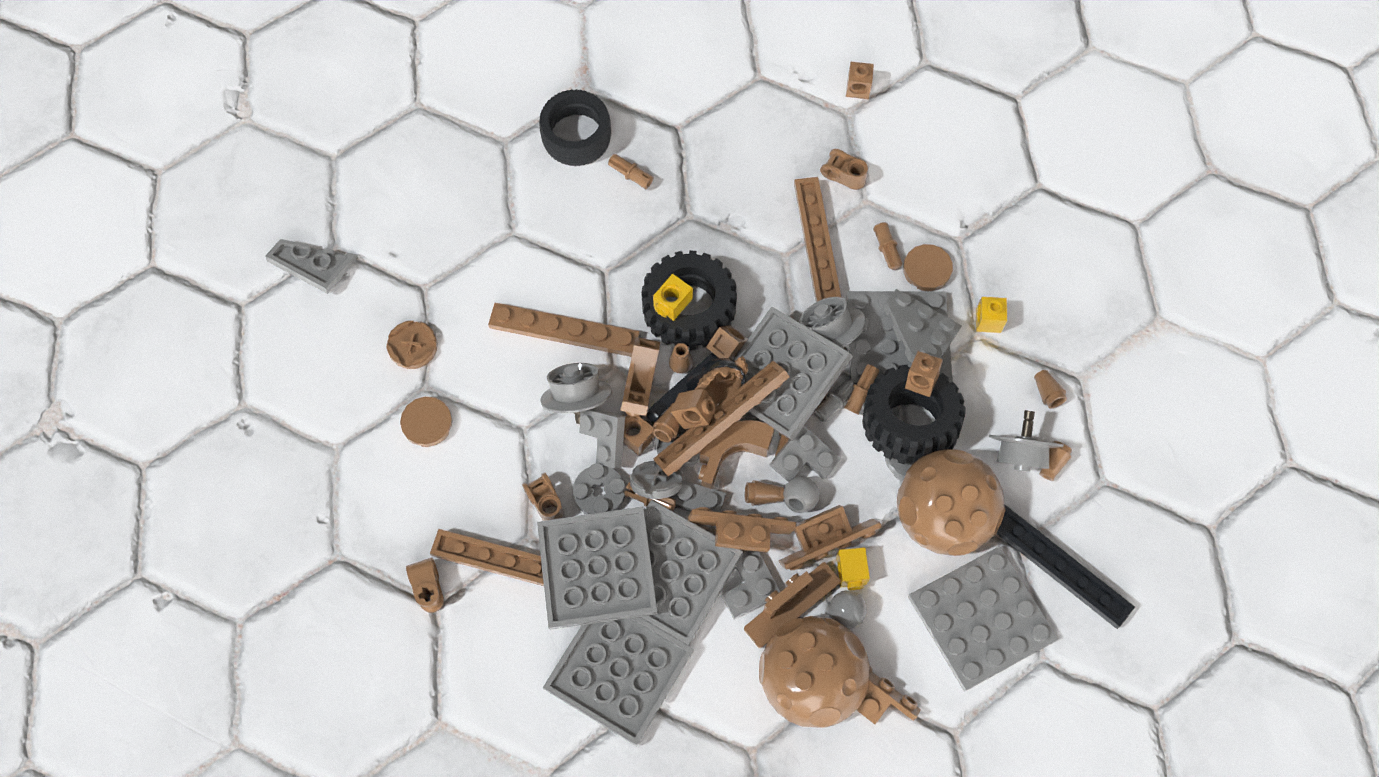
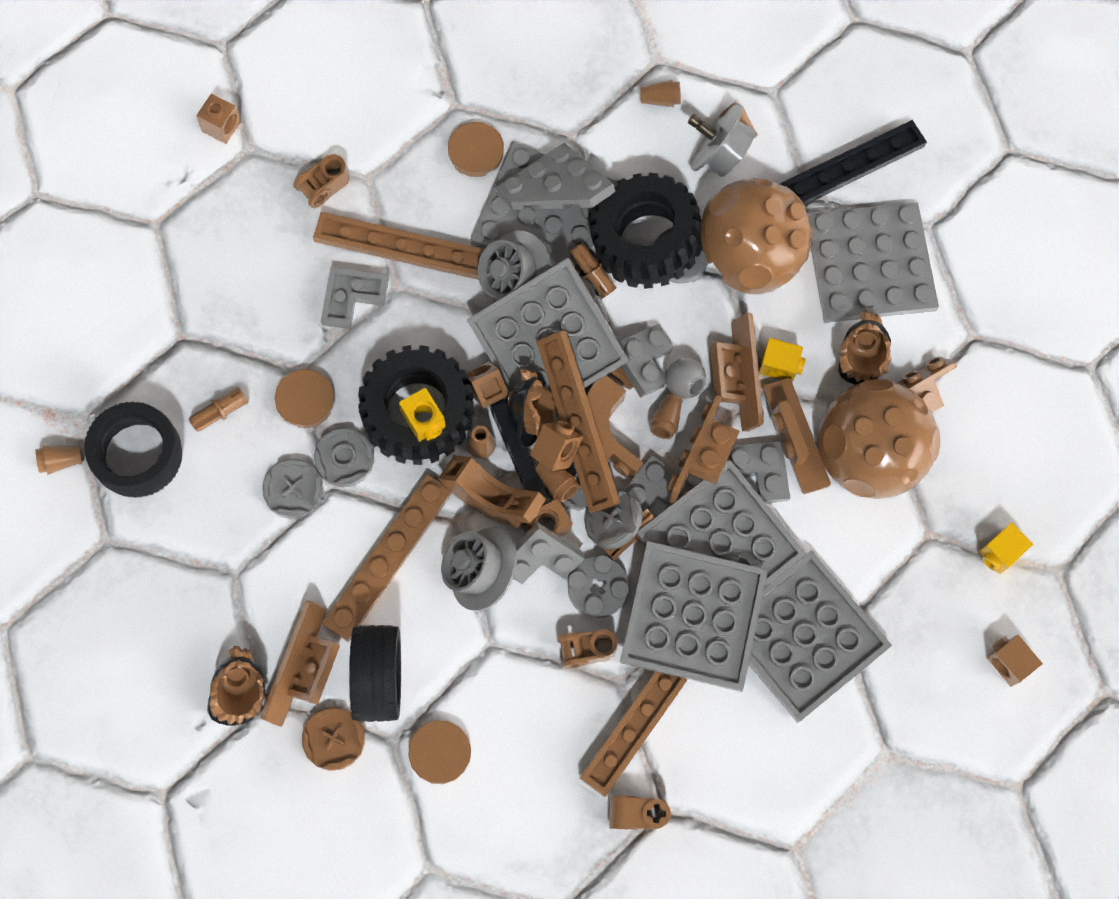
camera: 75 degrees left, 5 degrees up
(314, 266) = (178, 826): light grey wing -> none
(422, 260) = (236, 689): none -> medium nougat hair
(456, 300) = (303, 667): none -> medium nougat bracket
(462, 345) = (375, 673): none -> black tyre
(549, 82) = (56, 458): none -> medium nougat cone
(591, 245) = (292, 489): none -> light grey tile
(628, 269) = (344, 457): none -> light grey tile
(665, 225) = (304, 398): none -> medium nougat tile
(761, 218) = (345, 289): none -> light grey plate
(848, 608) = (823, 382): light grey piece -> none
(887, 245) = (434, 177): medium nougat axle -> none
(891, 633) = (865, 350): none -> medium nougat hair
(923, 373) = (620, 196): medium nougat brick -> none
(991, 314) = (560, 110): yellow brick -> none

